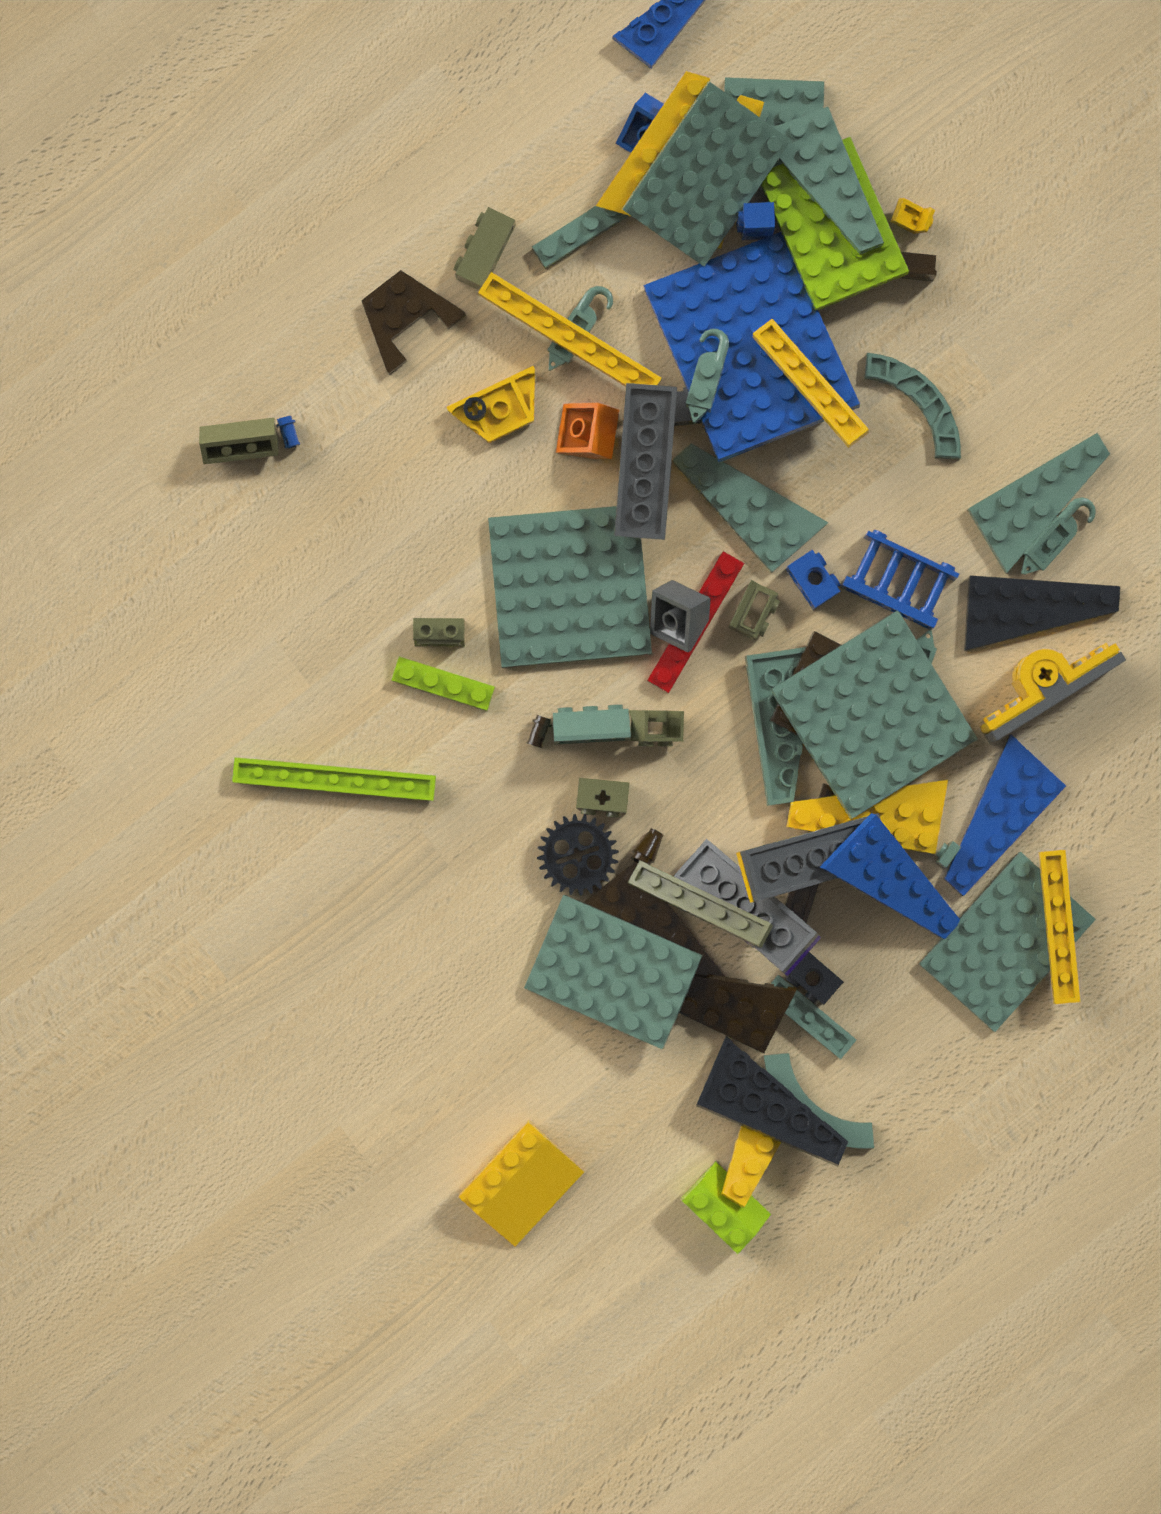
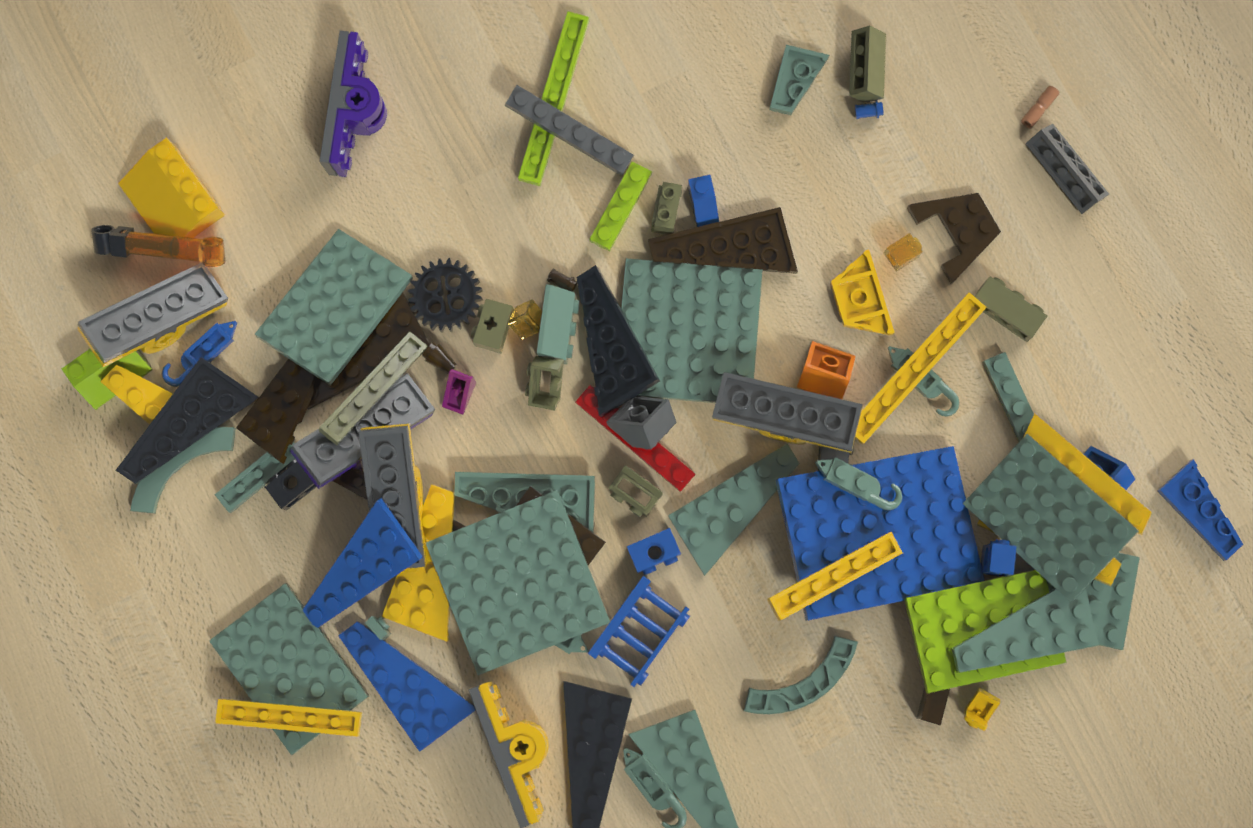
camera: 110 degrees right, 5 degrees down
(250, 247) = (1041, 105): none -> nougat piece
(263, 518) = (795, 77): none -> sand green wing
(319, 210) = (1067, 168): none -> dark grey fence
(370, 754) = (569, 130): none -> dark grey plate
(375, 1006) = (352, 106): none -> dark purple piece
(424, 593) = (703, 200): none -> blue slope
(442, 369) = (903, 251): none -> clear yellow brick
(462, 544) = (740, 242): none -> dark brown wing
(468, 404) = (868, 268): black bush -> none
(582, 1220) = (124, 241): none -> clear orange piece
(588, 761) = (526, 319): none -> clear yellow panel
(610, 657) = (614, 351): none -> black wing
(662, 1163) = (153, 316): none -> piece
(682, 819) = (458, 391): none -> magenta slope
(684, 1106) = (207, 347): none -> blue plate

